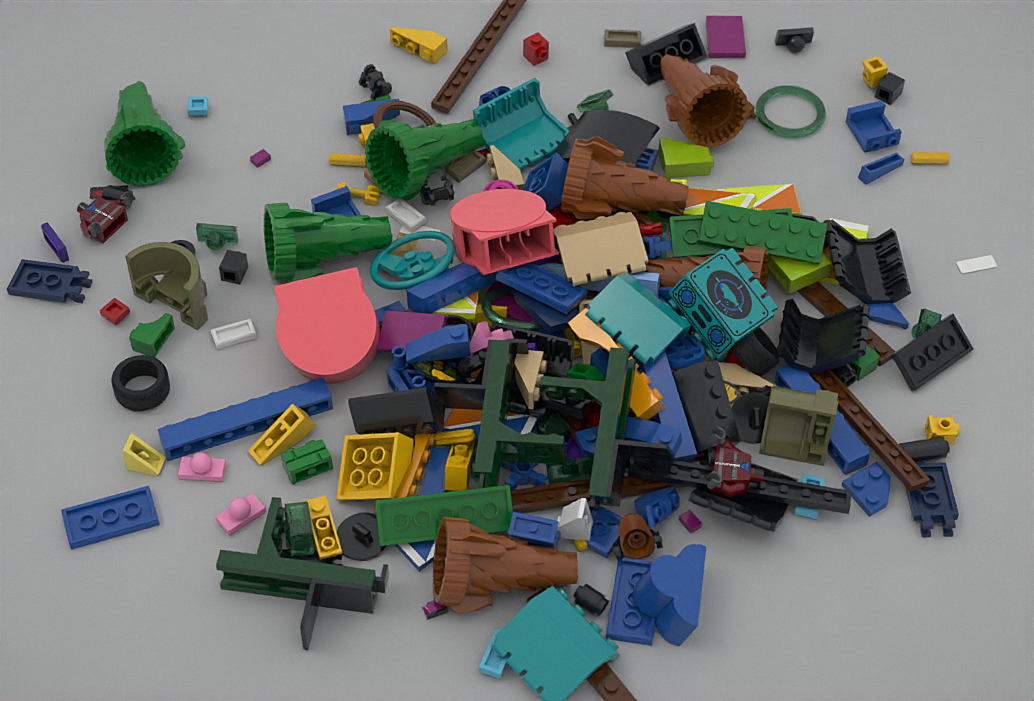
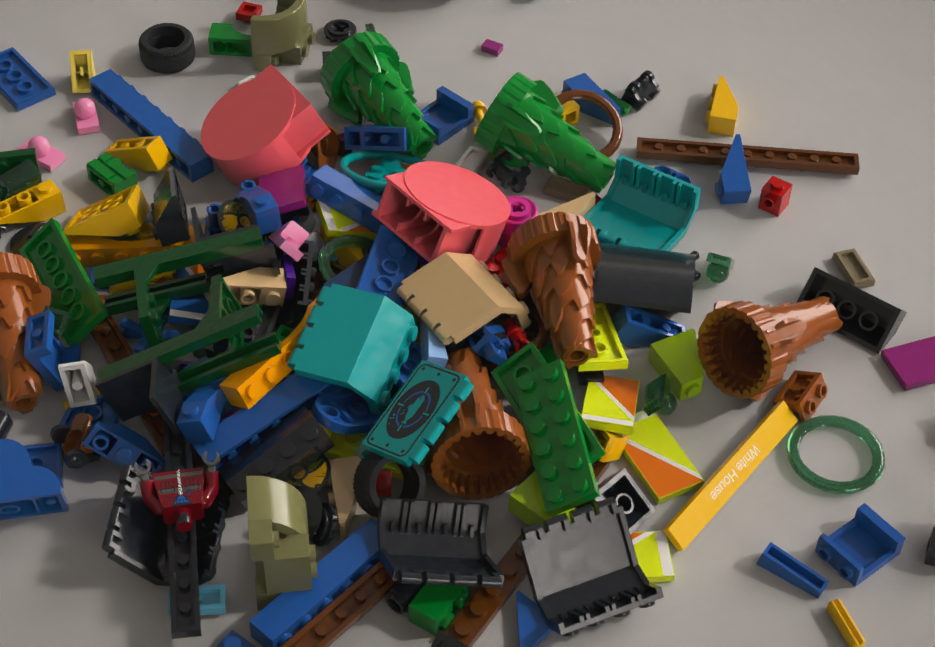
camera: 70 degrees right, 5 degrees down
(369, 253) = (375, 138): none -> blue slope
(498, 524) = (61, 321): none -> clear green slope
(503, 61) = (734, 179): none -> blue slope
(713, 179) = (658, 397): none -> clear green tile
(794, 169) = (729, 476): none -> yellow tile

